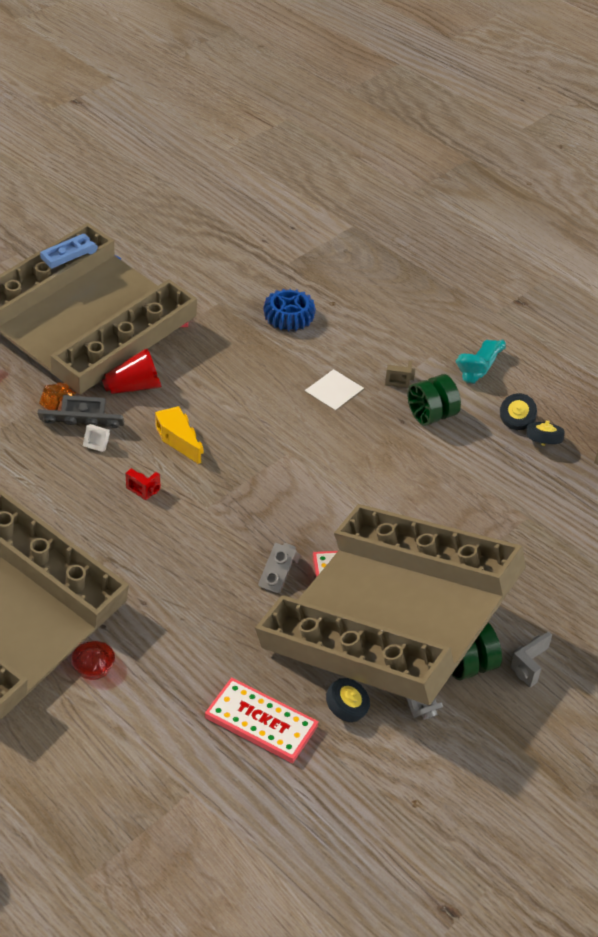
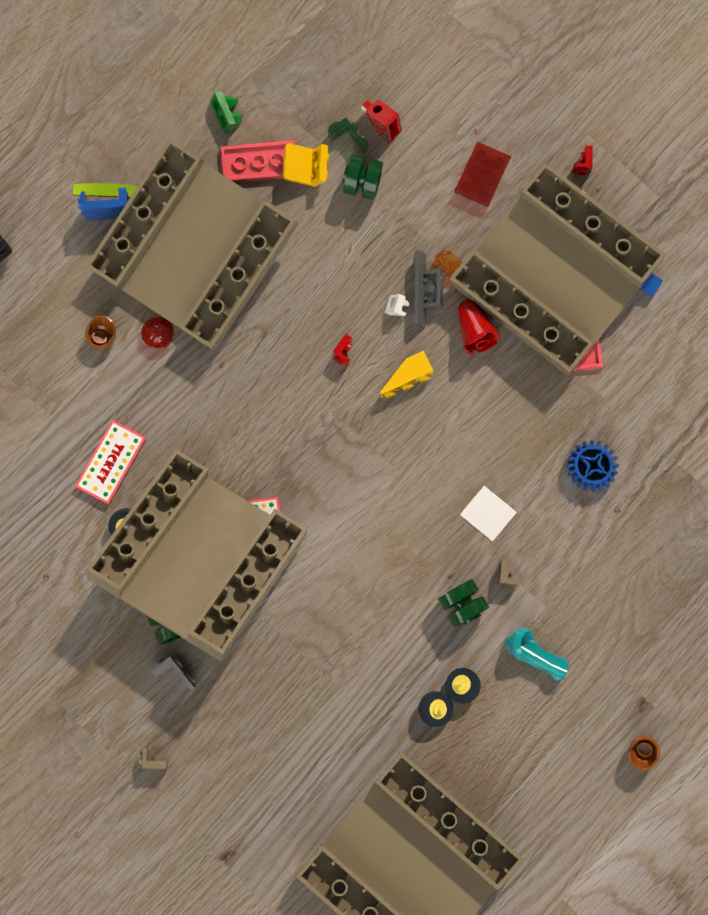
camera: 90 degrees right, 35 degrees up
(68, 250) = (612, 242): medium blue plate -> none
(83, 715) = (100, 332): none -> dark orange hair
(278, 567) = (259, 469): light grey bracket -> none
(569, 296) = (643, 753): none -> dark orange hair

